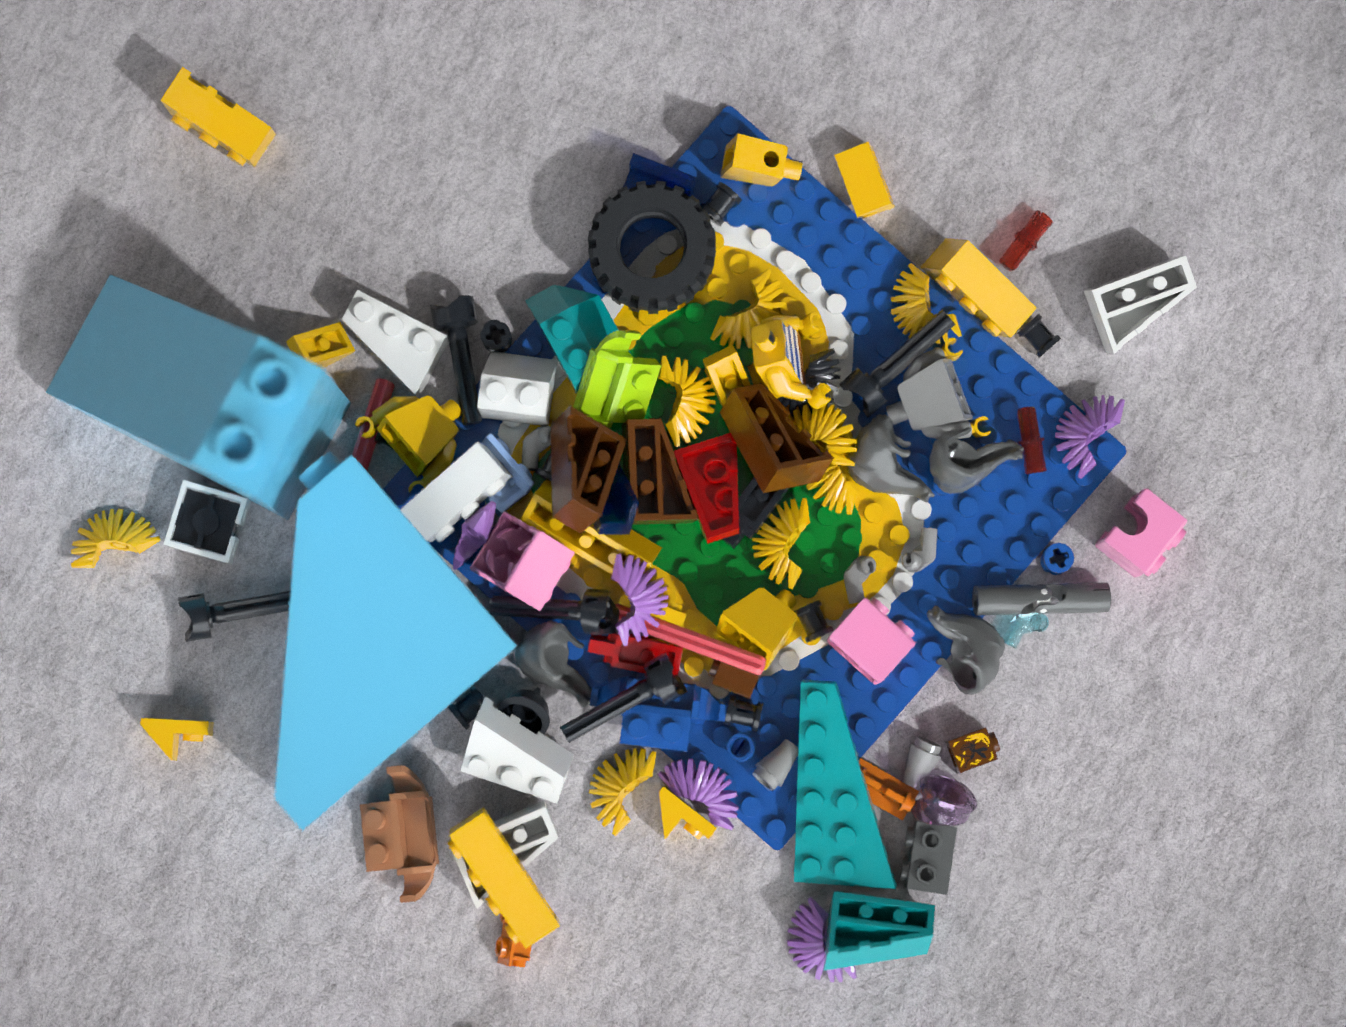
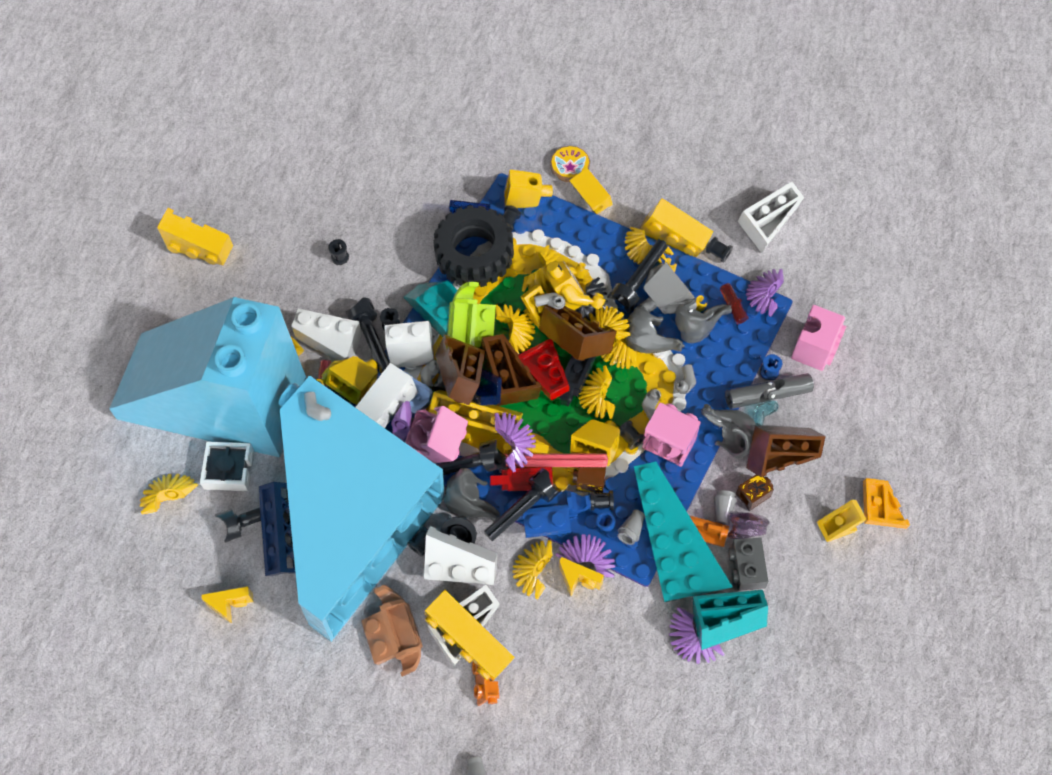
camera: 10 degrees left, 20 degrees down
(262, 643) = (274, 529): none -> dark blue fence
(349, 516) = (315, 410): none -> light grey arm
(437, 184) = (341, 253): none -> black bush
(748, 379) = (551, 299): none -> light grey arm
(845, 115) = (569, 162): none -> tile
(1025, 240) = (696, 200): clear red axle -> none
(1031, 698) = (780, 447): none -> reddish brown wedge
(1081, 827) = (841, 521): none -> yellow slope
(1149, 814) = (881, 505): none -> light orange wing

